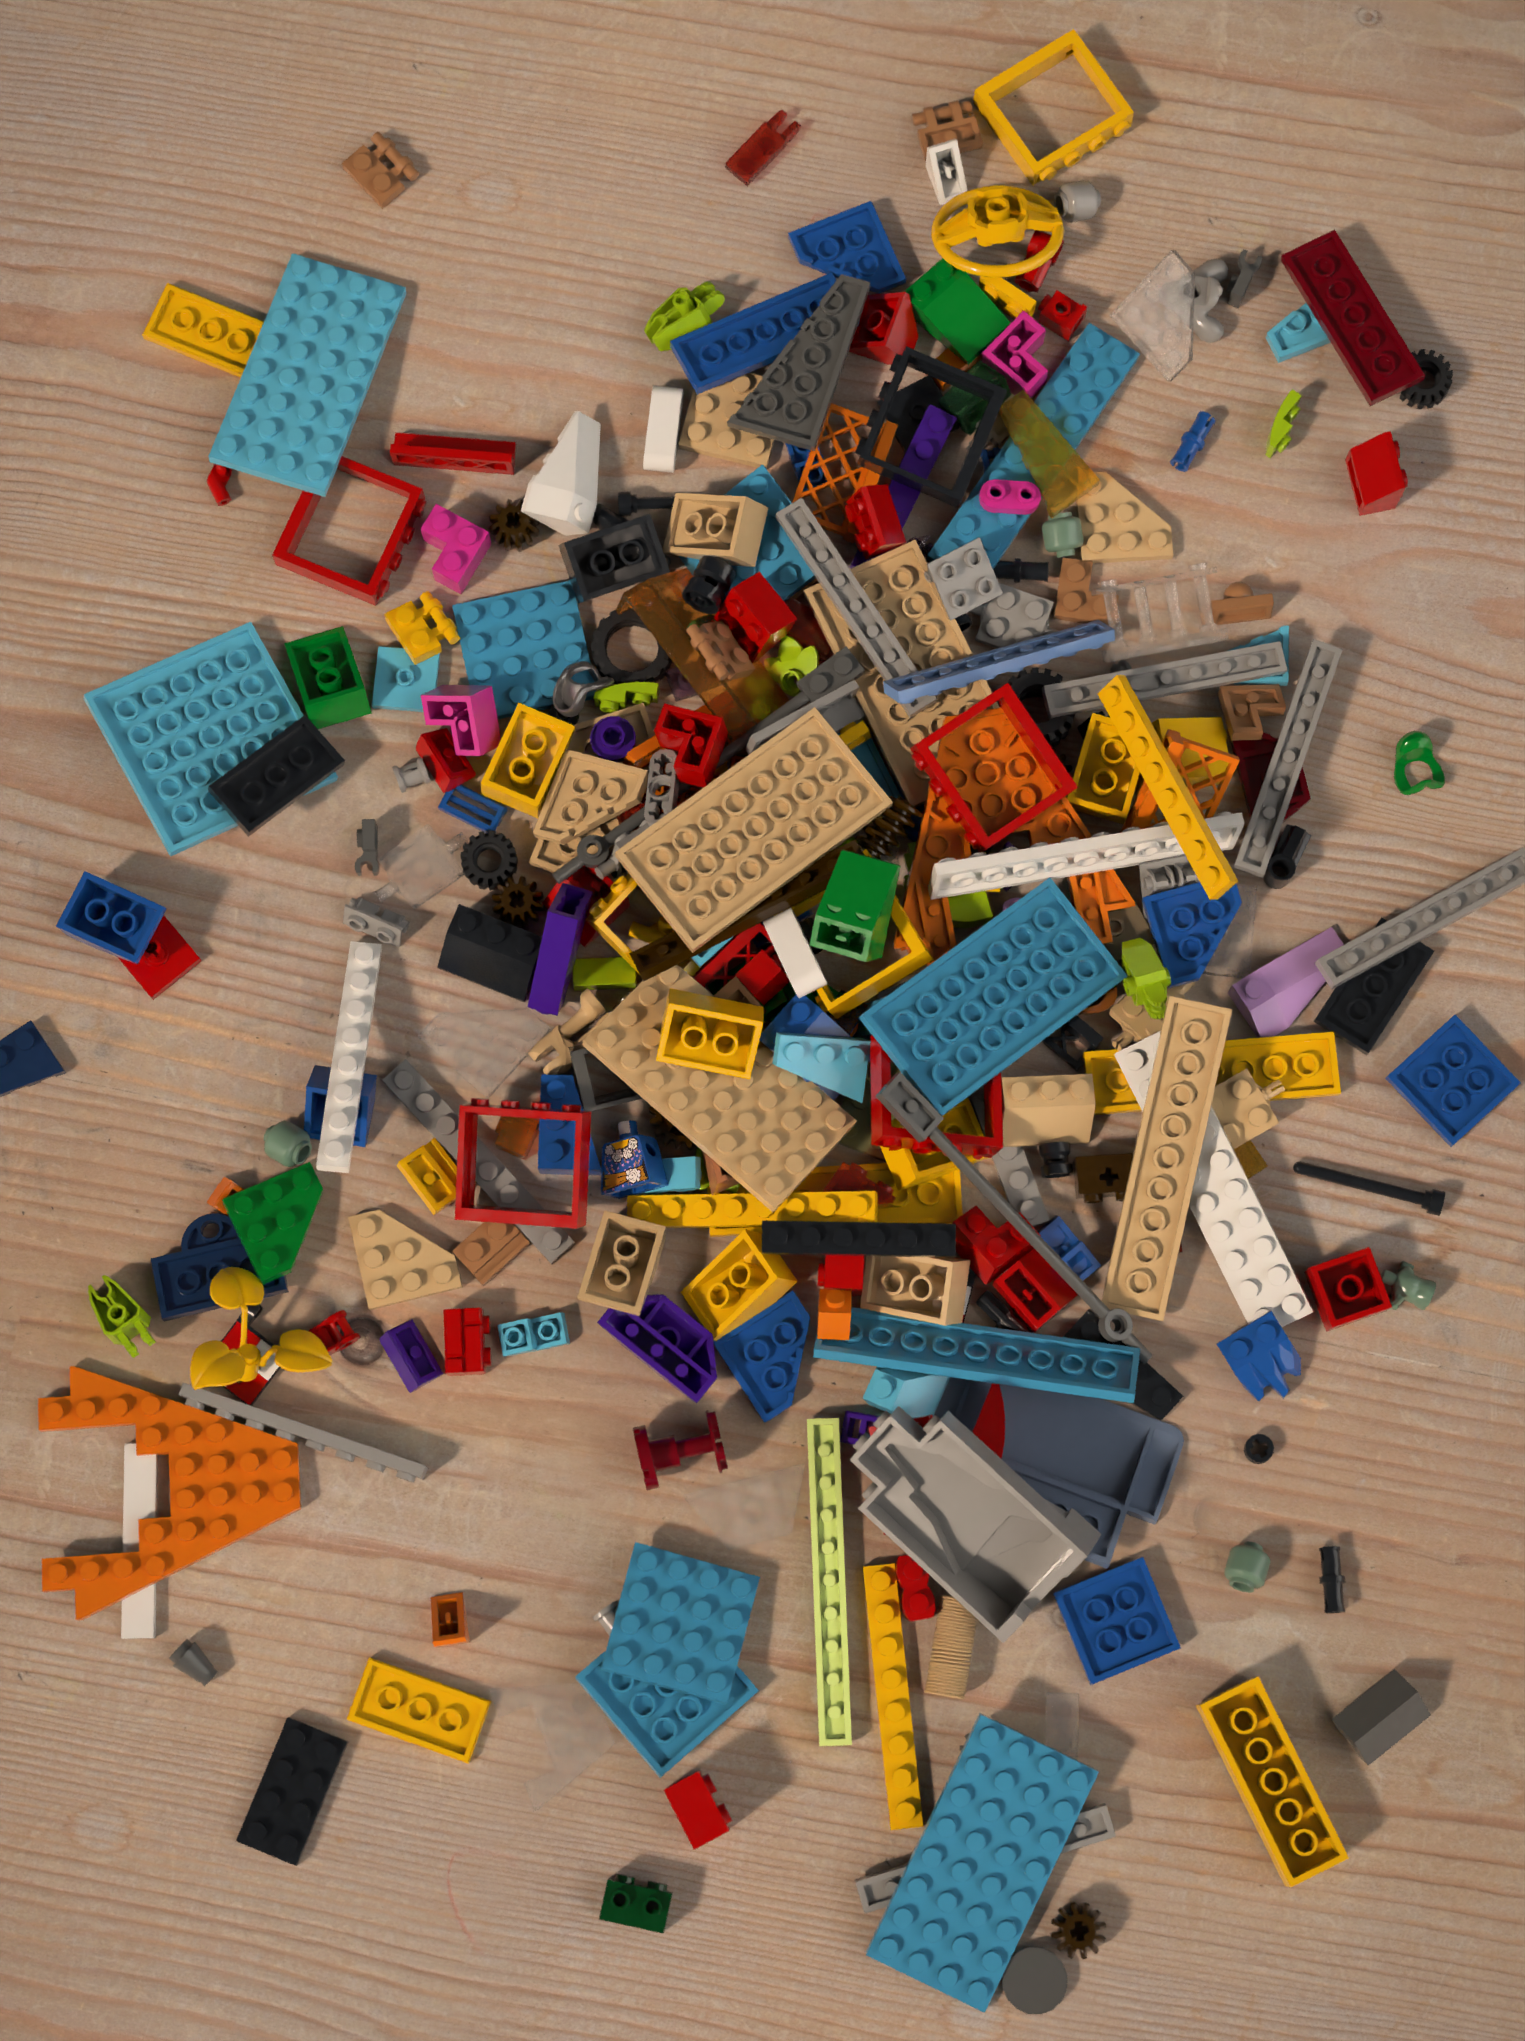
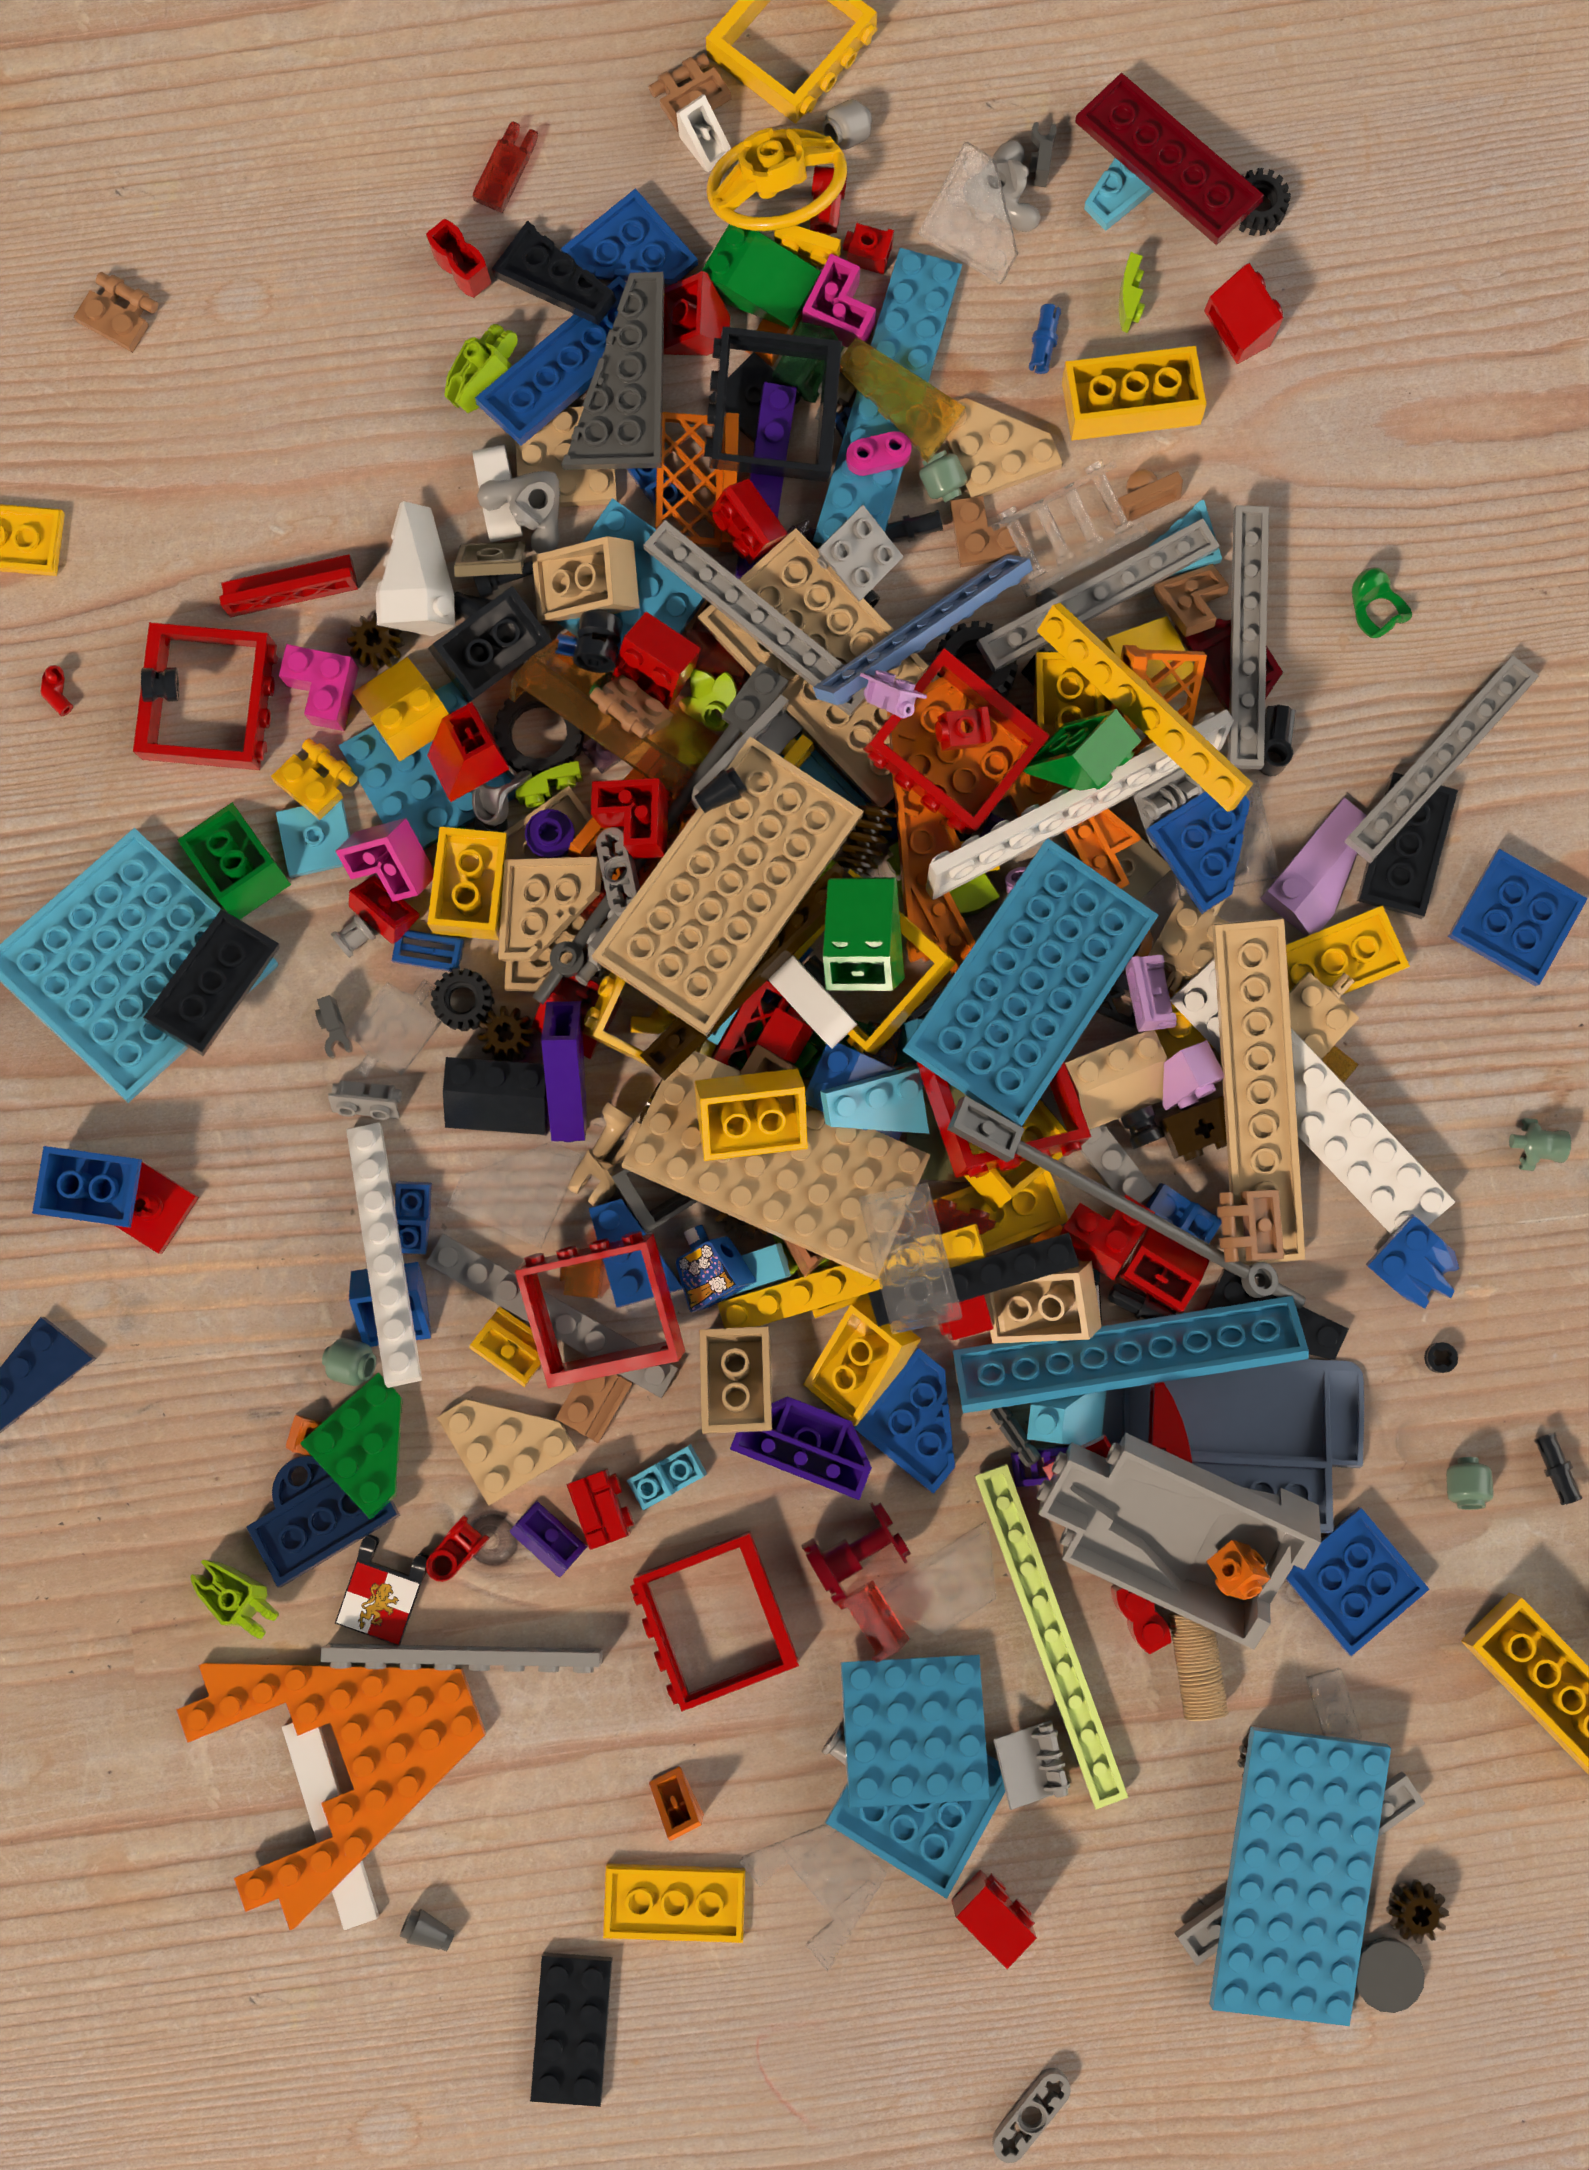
camera: 15 degrees left, 5 degrees up
(218, 1366) = (352, 1629): yellow plant -> none
(308, 375) = (109, 550): medium azure plate -> none
(315, 504) = (160, 684): none -> black wheel
(385, 1034) = (413, 1215): none -> blue slope
(480, 1461) = (666, 1656): none -> red window
(520, 591) = (402, 708): none -> yellow slope
(561, 645) = (465, 752): none -> red slope
(603, 974) = (618, 1080): lime slope -> none
(636, 1904) = (961, 2032): dark green brick -> none
(638, 484) = (490, 559): none -> dark tan plate
(649, 2006) = (1008, 2130): none -> light grey beam
(677, 1516) = (876, 1620): none -> clear red hinge
(680, 579) = (566, 645): none -> blue hand
(691, 447) = (532, 502): none -> light grey head
(695, 215) = (458, 258): none -> red brick
(767, 248) = (549, 274): none -> black wing
(773, 745) = (721, 790): none -> black cone
(774, 1688) = (1031, 1765): none -> light grey hinge
(808, 1200) = (910, 1258): none -> clear plate
(834, 1314) = (971, 1363): orange brick -> none
(854, 1394) = (1015, 1435): none -> dark grey axle
(892, 1697) = (1152, 1732): yellow plate -> none
(948, 707) = (894, 696): none -> lavender hinge
(990, 762) = (977, 729): none -> red brick
(1012, 1569) = (1239, 1570): none -> orange brick
(1013, 618) = (920, 580): light grey plate -> none
(1098, 1041) = (1149, 993): none -> lavender hinge
(1103, 810) = (1085, 751): none -> green slope
(1110, 1125) = (1190, 1076): none -> lavender slope
(1130, 1274) = (1260, 1222): none -> medium nougat plate
(1146, 977) = (1178, 910): lime hinge -> none
(1255, 513) = (1133, 393): none -> yellow brick
(1347, 1289) = (1482, 1167): red brick -> none
(1429, 1200) = (1535, 1048): black piece -> none

